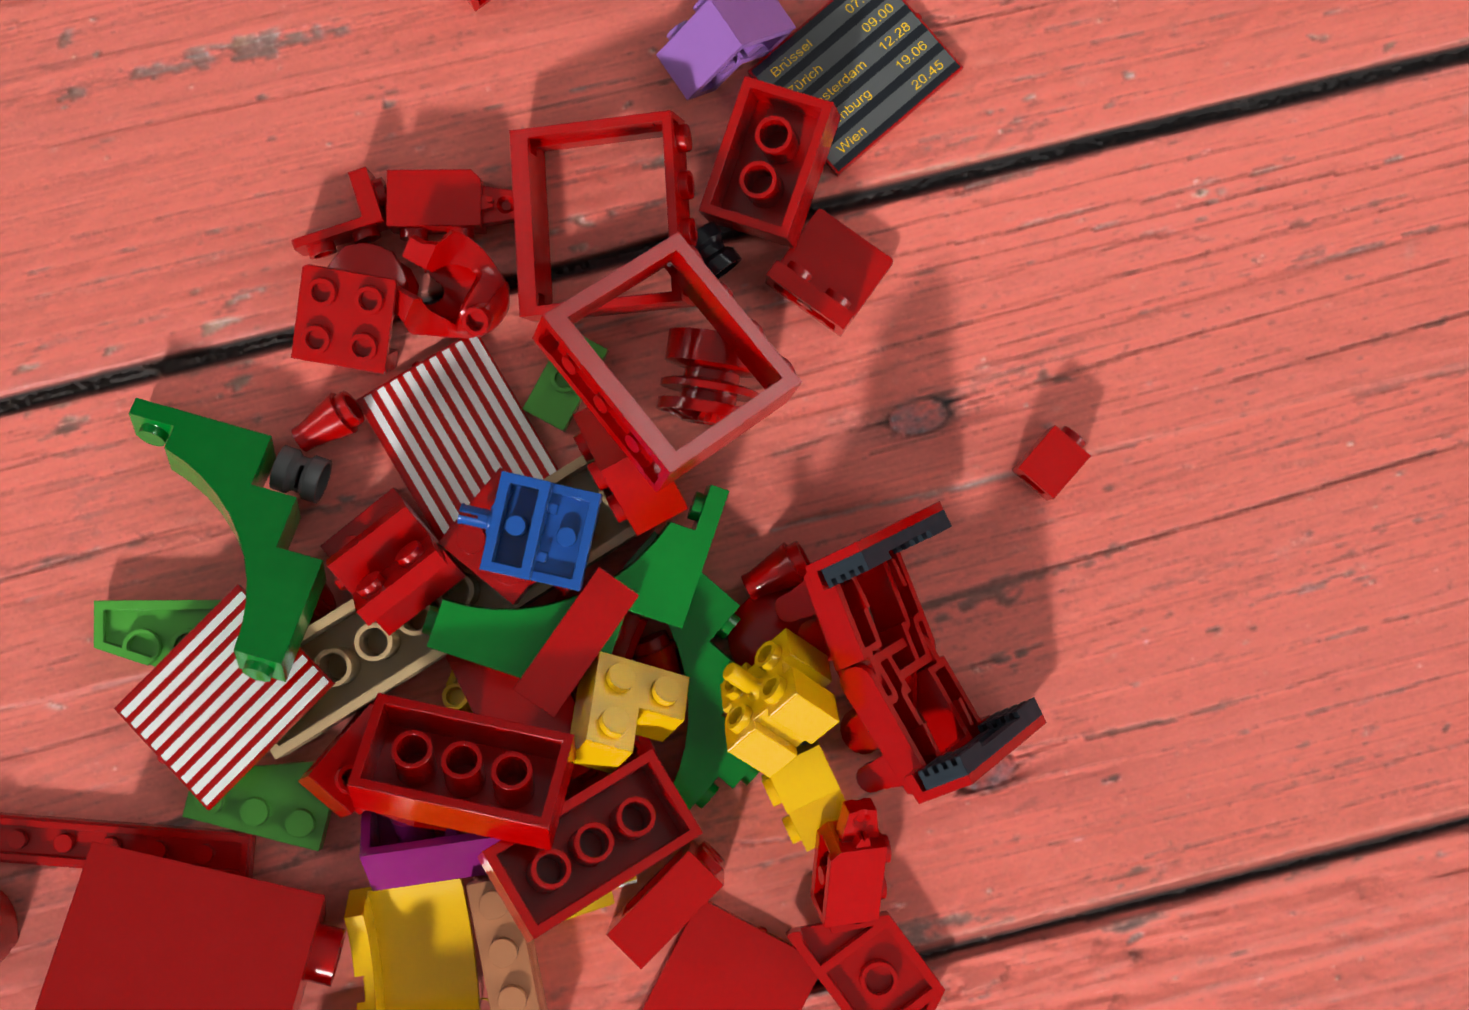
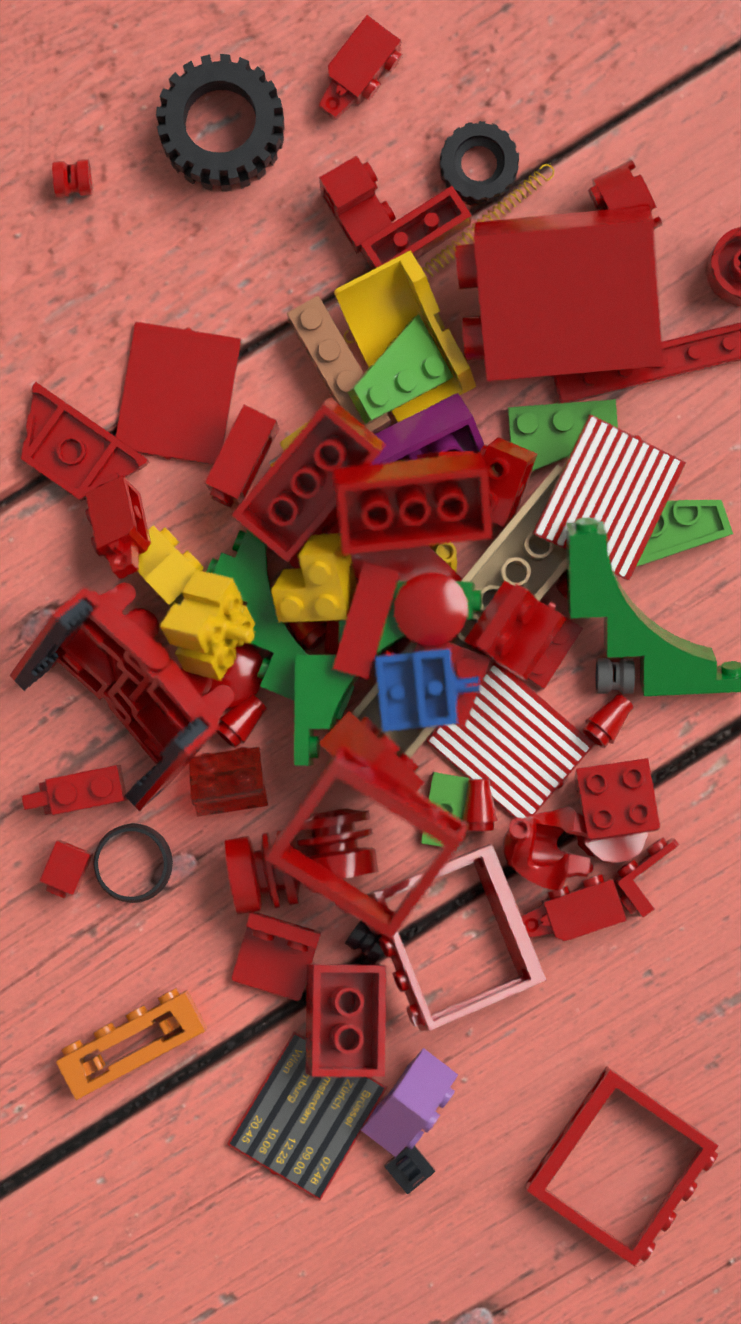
camera: 160 degrees right, 0 degrees up
(432, 939) = (401, 373): none -> bright green wing
(489, 628) = (431, 609): none -> red dish
(520, 370) = (479, 806): none -> red cone
(819, 502) = (227, 781): none -> clear red bracket
(825, 374) = (254, 875): none -> red wheel
(930, 466) = (167, 858): none -> black tyre
(1006, 550) = (78, 791): none -> red hinge
(1117, 213) = (77, 1071): none -> orange brick

